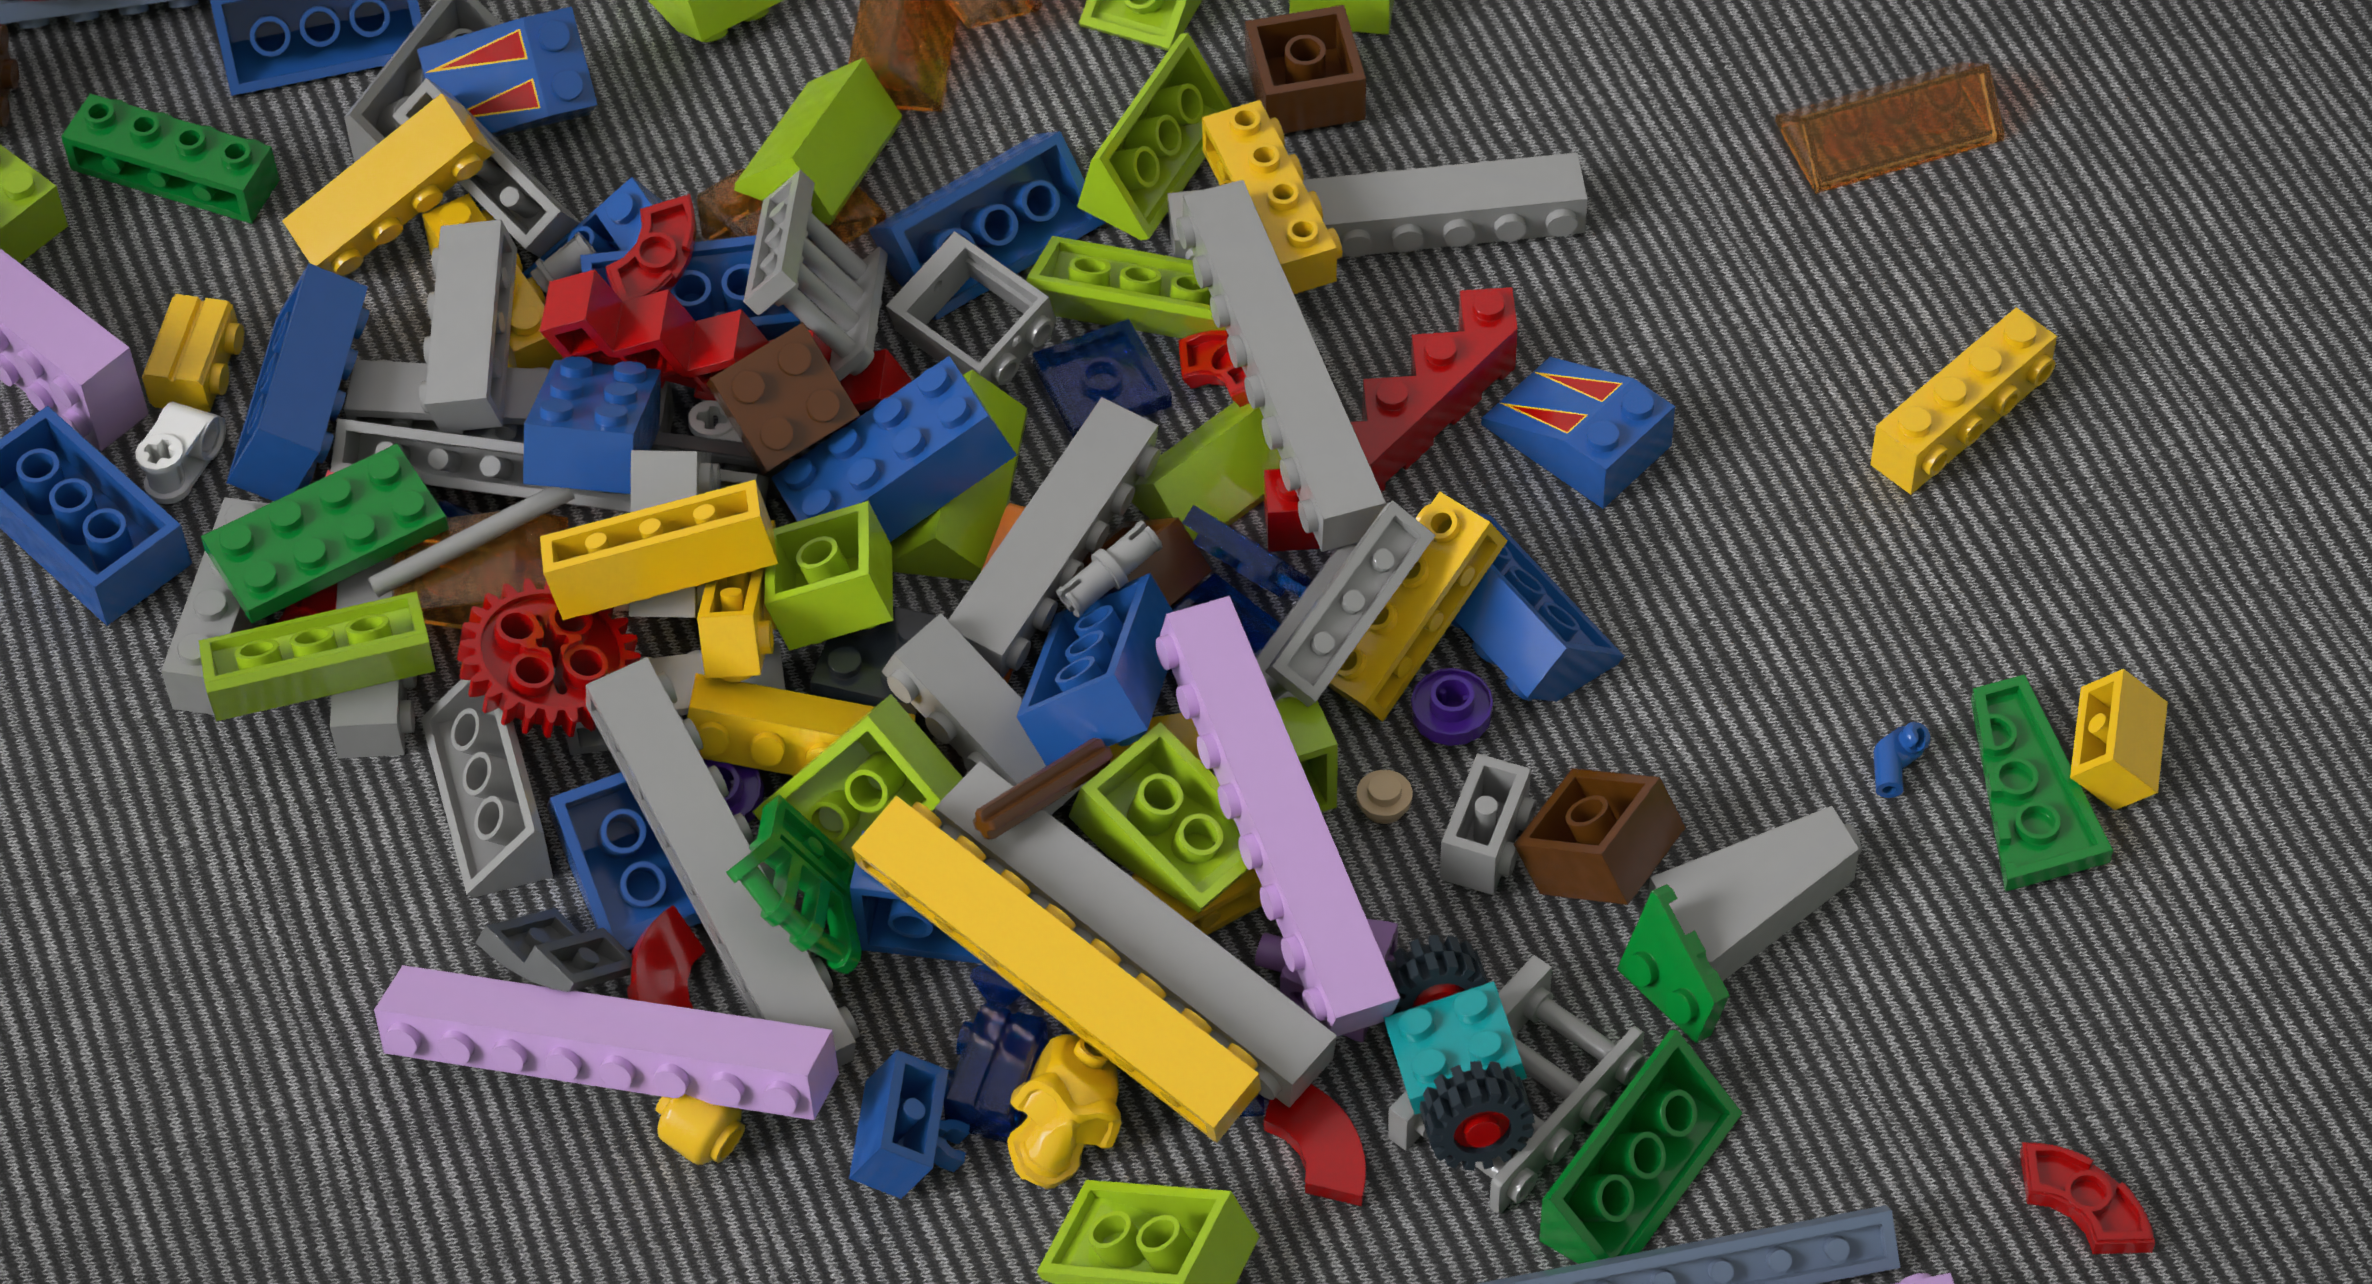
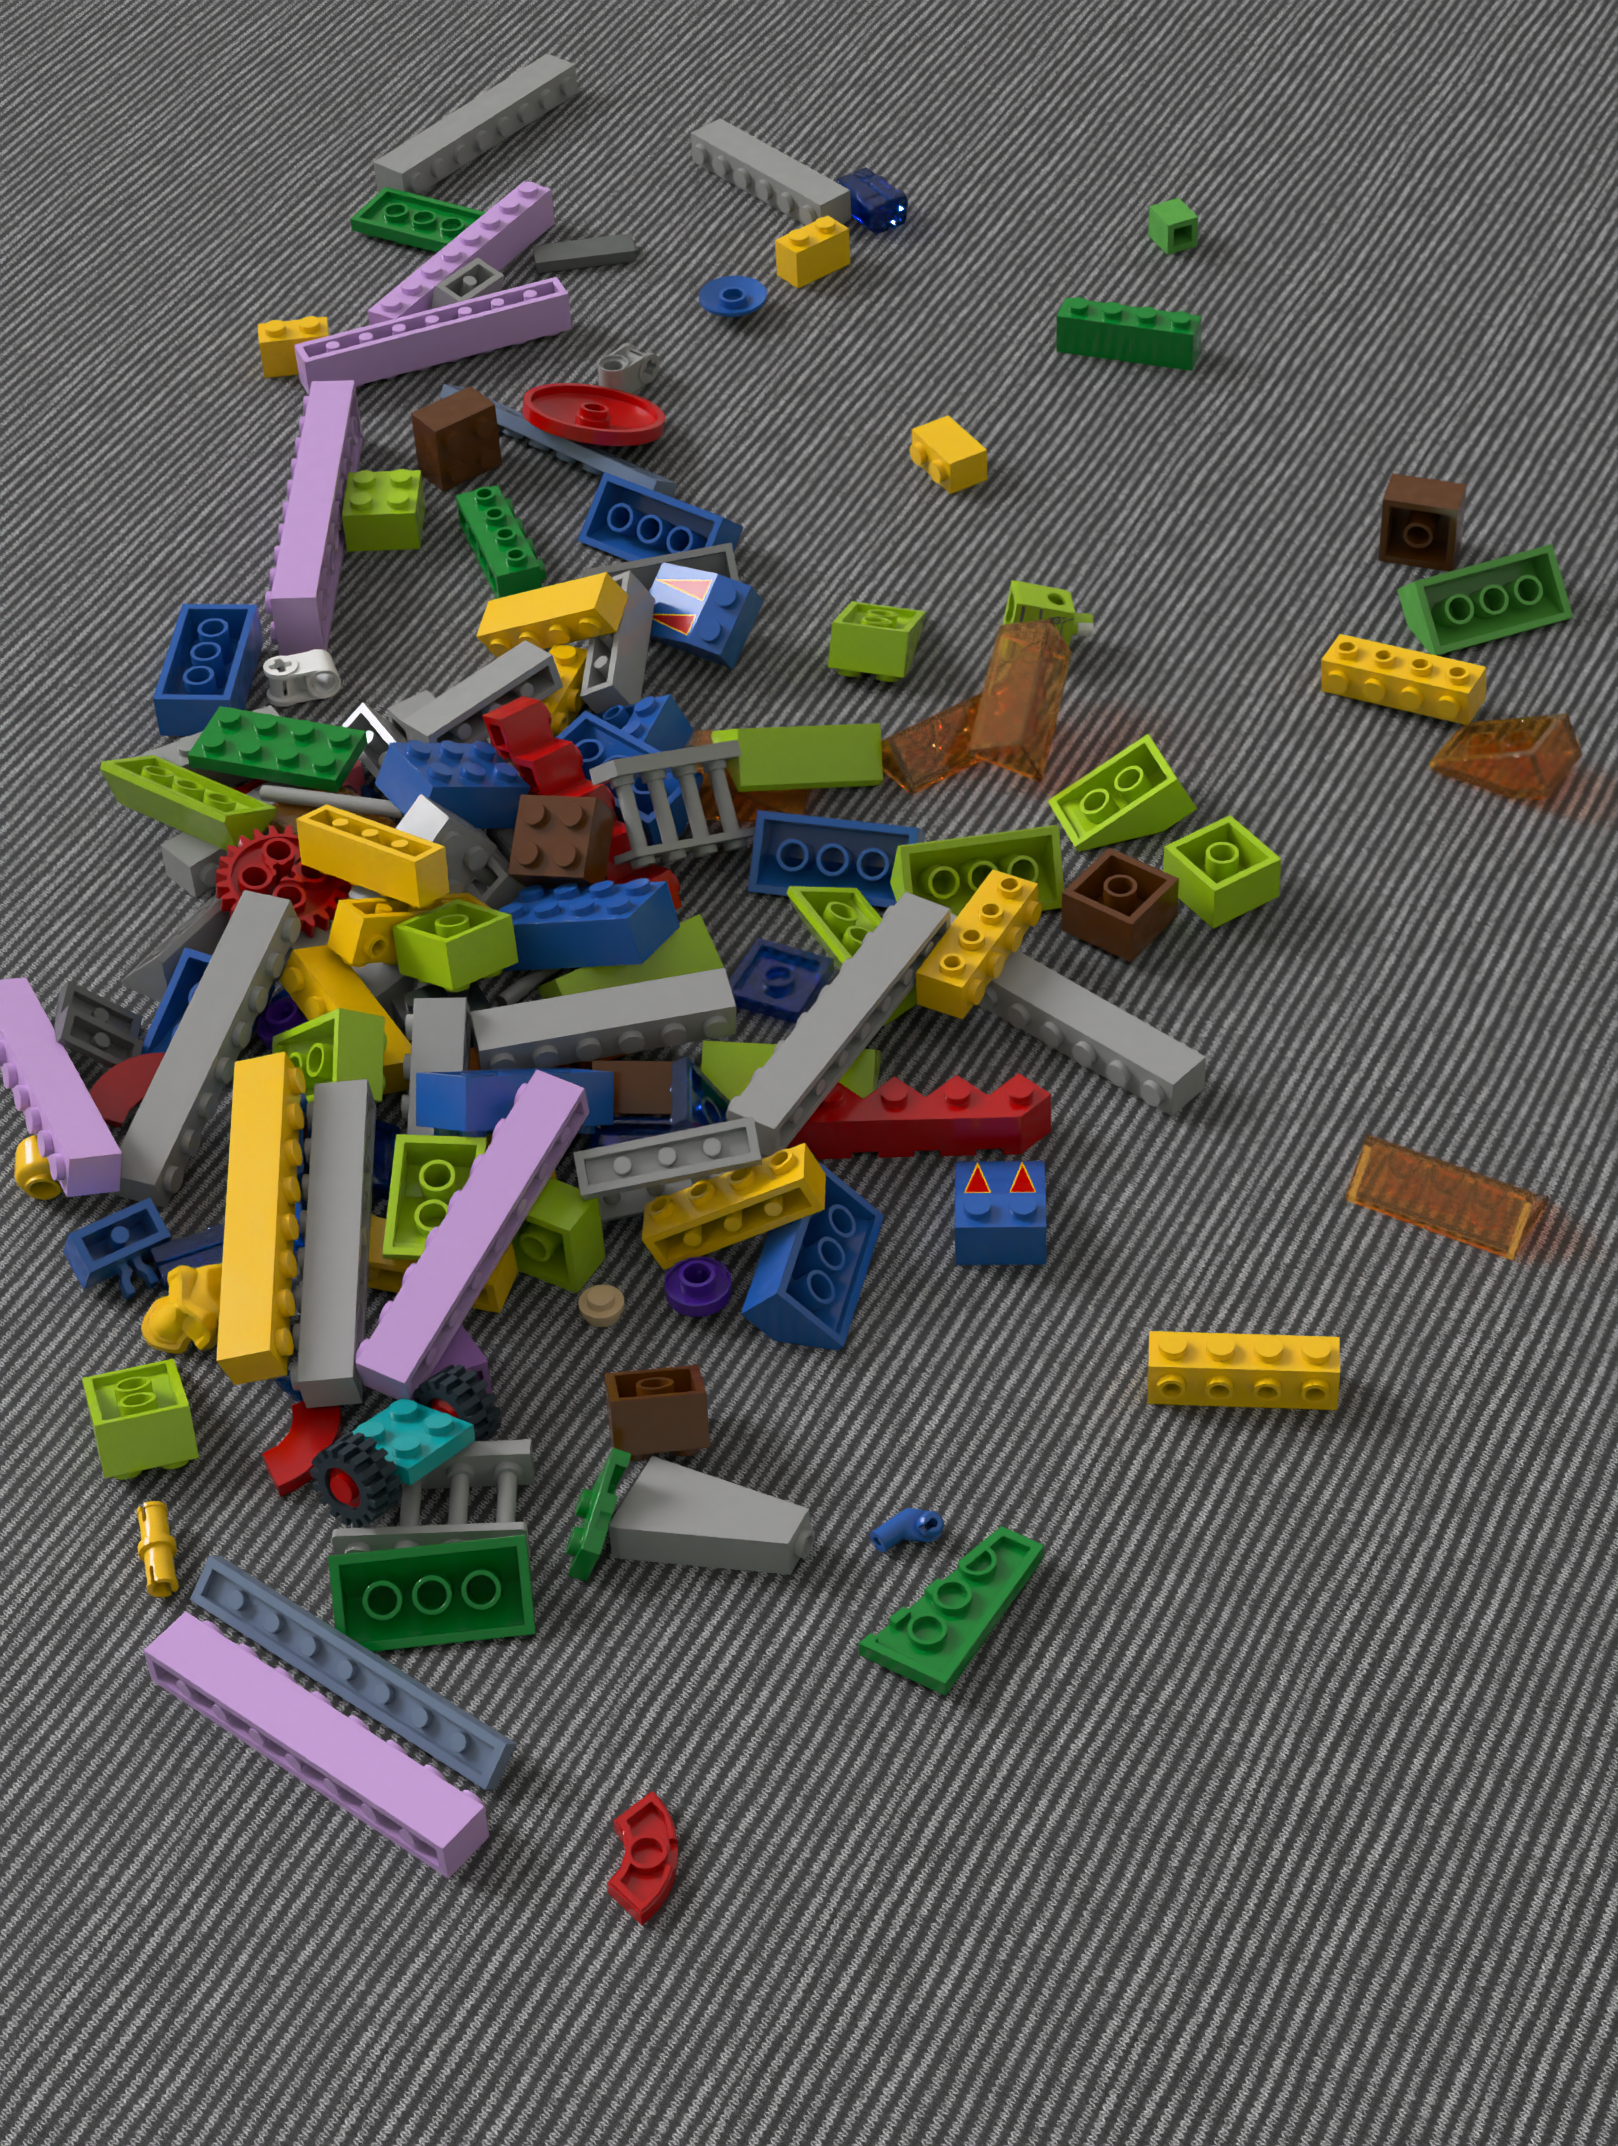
camera: 50 degrees right, 10 degrees down
(193, 353) = (372, 639): yellow brick -> none
(300, 385) = (383, 673): blue brick -> none
(563, 262) = (573, 711): light grey pin -> none
(660, 250) = (620, 735): red tile -> none
(804, 864) = (230, 1048): green plate -> none
(941, 279) = (726, 868): light grey window -> none
(1042, 788) = (371, 1115): reddish brown axle -> none
(1109, 568) = (595, 1052): light grey pin -> none
(1486, 824) = (611, 1347): light grey brick -> none
(2119, 739) = (1040, 1627): yellow brick -> none

